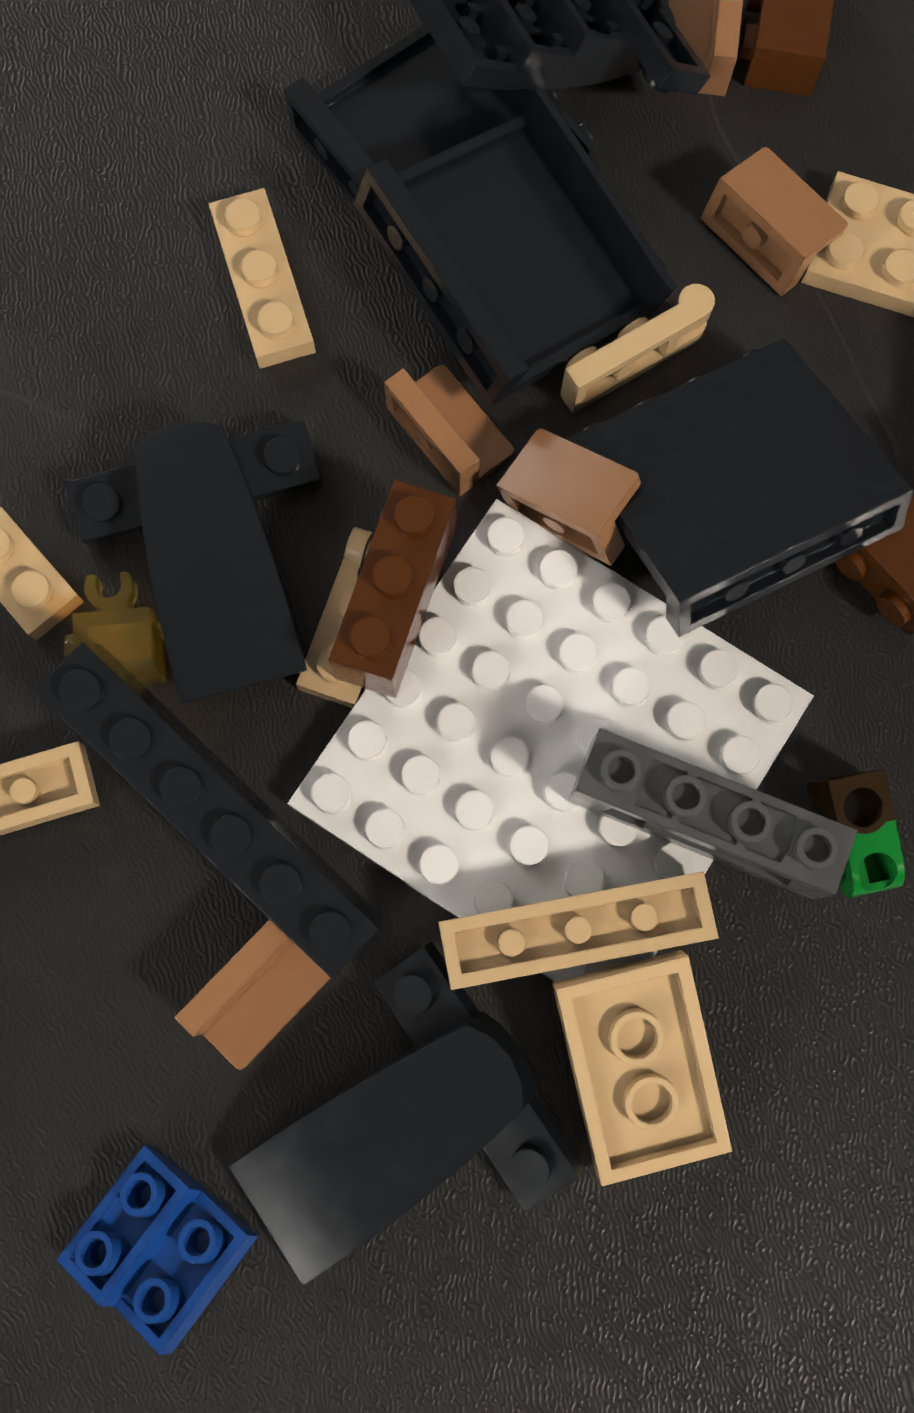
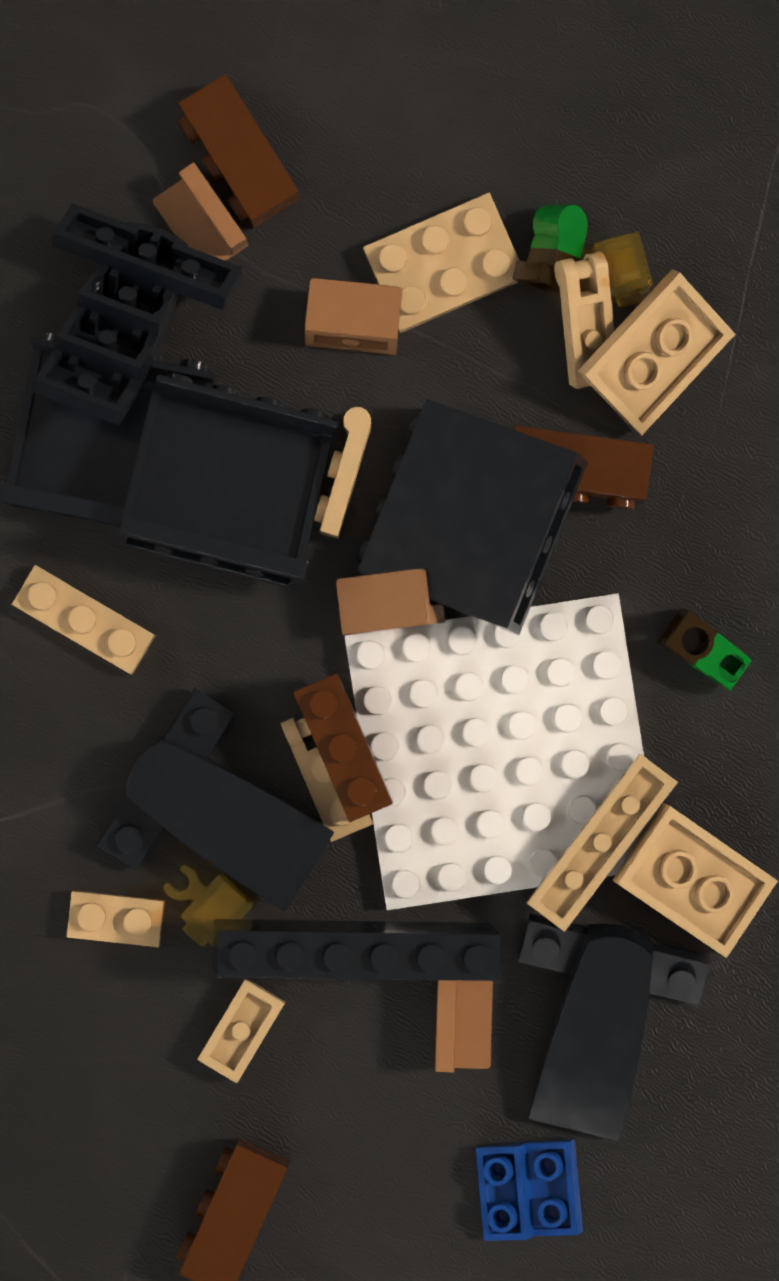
camera: 35 degrees left, 10 degrees up
(447, 426) = (277, 613): medium nougat panel -> none
(713, 816) = (618, 721): dark grey brick -> none

